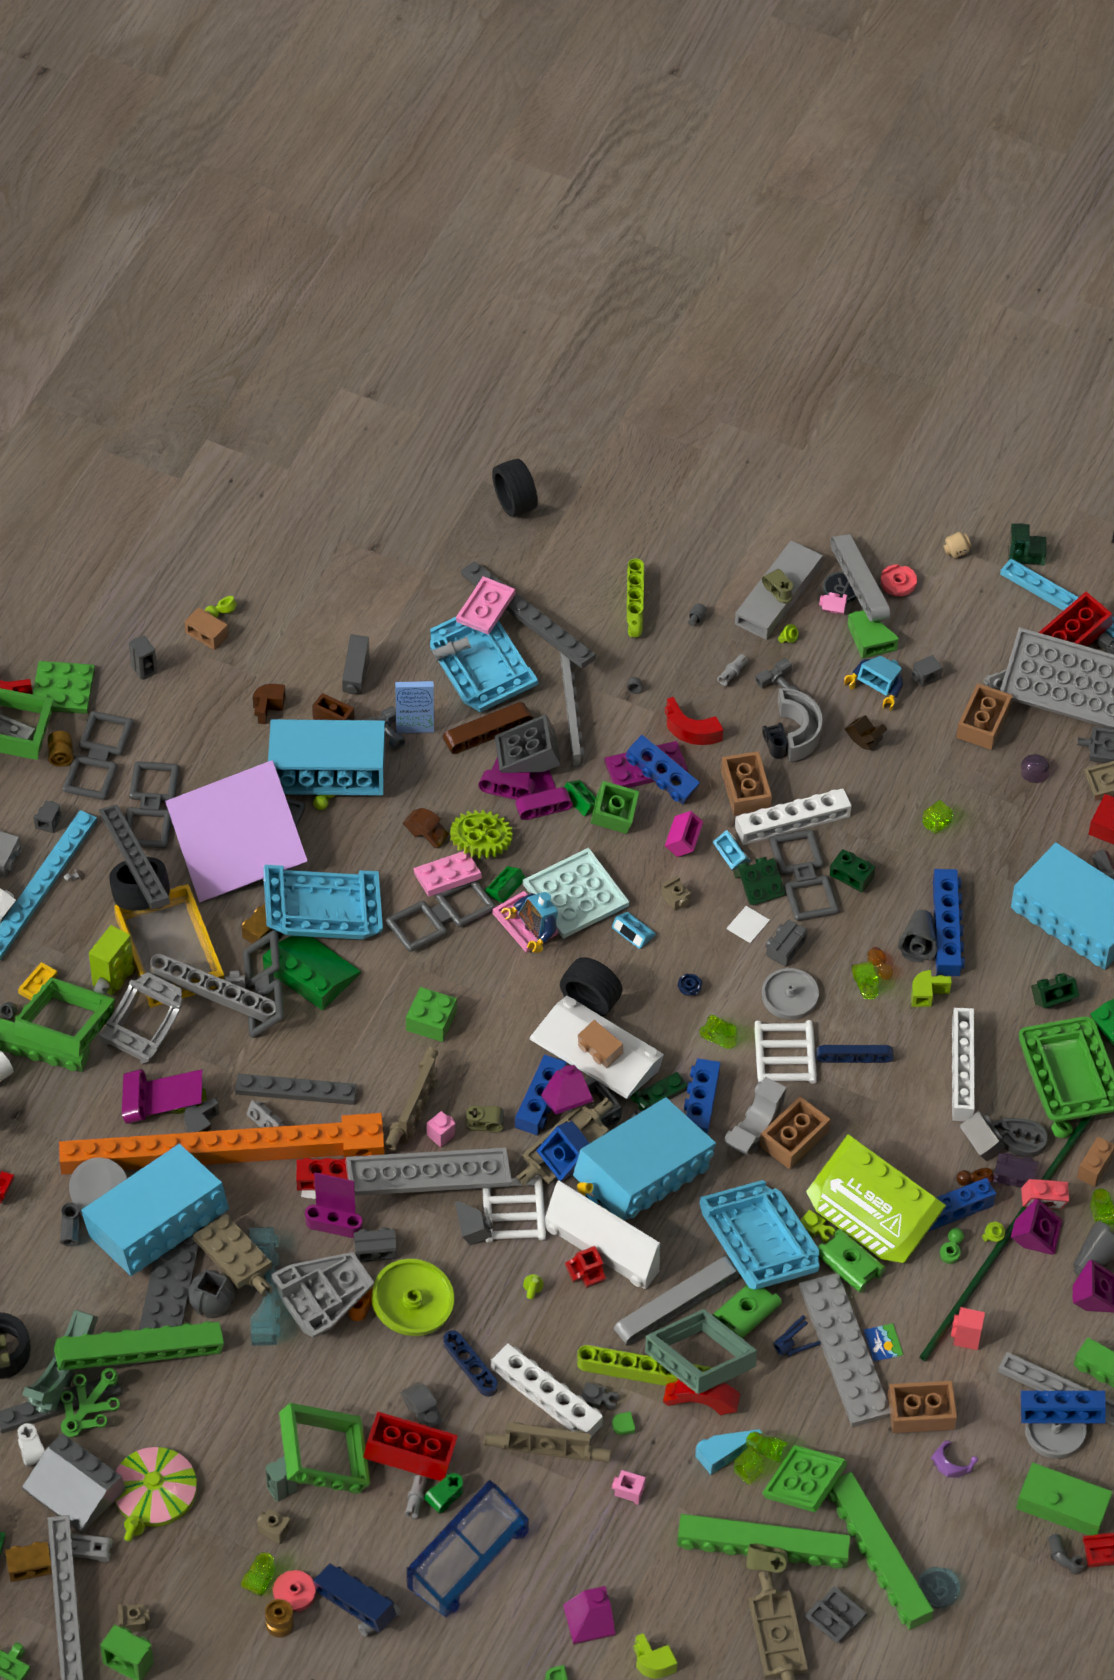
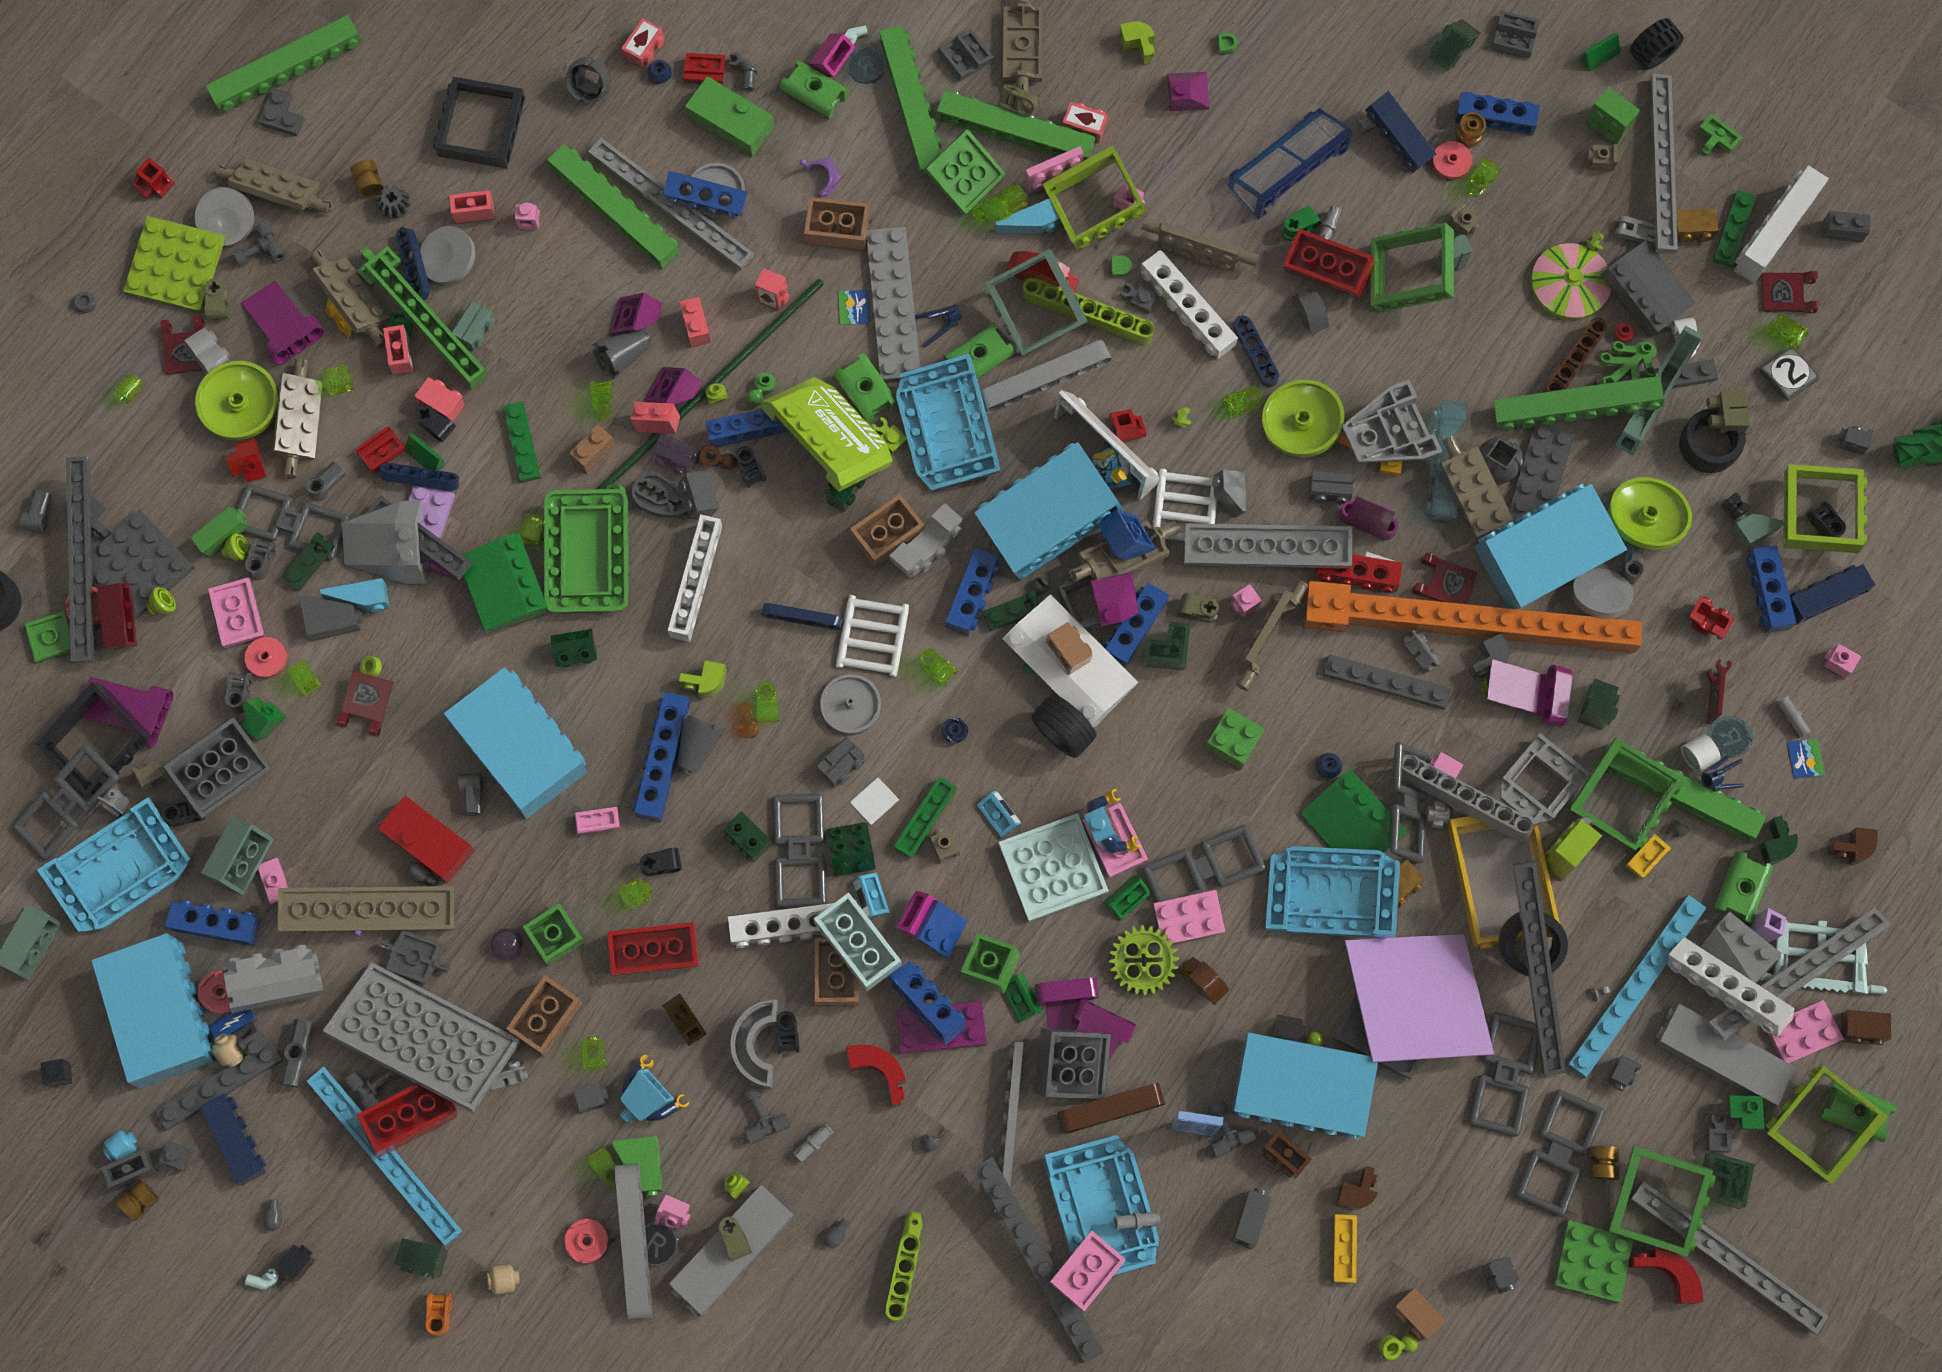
camera: 170 degrees left, 20 degrees up
(57, 1265) = (1650, 513): none -> lime dish
(94, 1090) = (1599, 705): none -> clear green brick
(94, 1448) = (1622, 337): none -> red plate
(143, 1412) = (1579, 352): none -> reddish brown beam
(232, 1022) = (1446, 764): none -> bright pink brick
(244, 1637) = (1507, 107): none -> blue brick
(248, 1181) = (1448, 583): none -> dark red flag
(273, 661) = (1345, 1248): none -> yellow plate
(340, 1017) = (1322, 765): none -> dark blue plate
(346, 804) = (1288, 1028): none -> clear smoke brick
(478, 1308) = (1239, 404): none -> clear neon green piece
(506, 1071) = (1169, 653): none -> clear green brick
(664, 827) = (941, 929): none -> blue plate
(692, 1454) = (1081, 172): none -> lime window
(692, 1559) = (1086, 120): none -> brick
(698, 913) = (925, 817): none -> green plate
(714, 1492) = (1051, 168): none -> bright pink plate
(733, 787) = (857, 942): none -> light aqua brick
(901, 627) = (603, 1165): none -> clear neon green piece
(908, 777) = (653, 948): none -> red brick
(921, 844) = (663, 862): none -> black piece
(933, 700) = (600, 1061): none -> clear neon green brick
(940, 1170) = (751, 469): none -> black piece
(962, 1614) = (853, 33): none -> light aqua arm
(976, 1579) = (832, 54): none -> dark pink brick
(988, 867) = (597, 820): none -> bright pink plate
(996, 773) = (553, 934): none -> bright green brick
(996, 1556) = (807, 78): none -> bright green piece
(1000, 516) = (438, 1308): none -> orange piece
(1035, 1292) = (695, 321): none -> coral brick

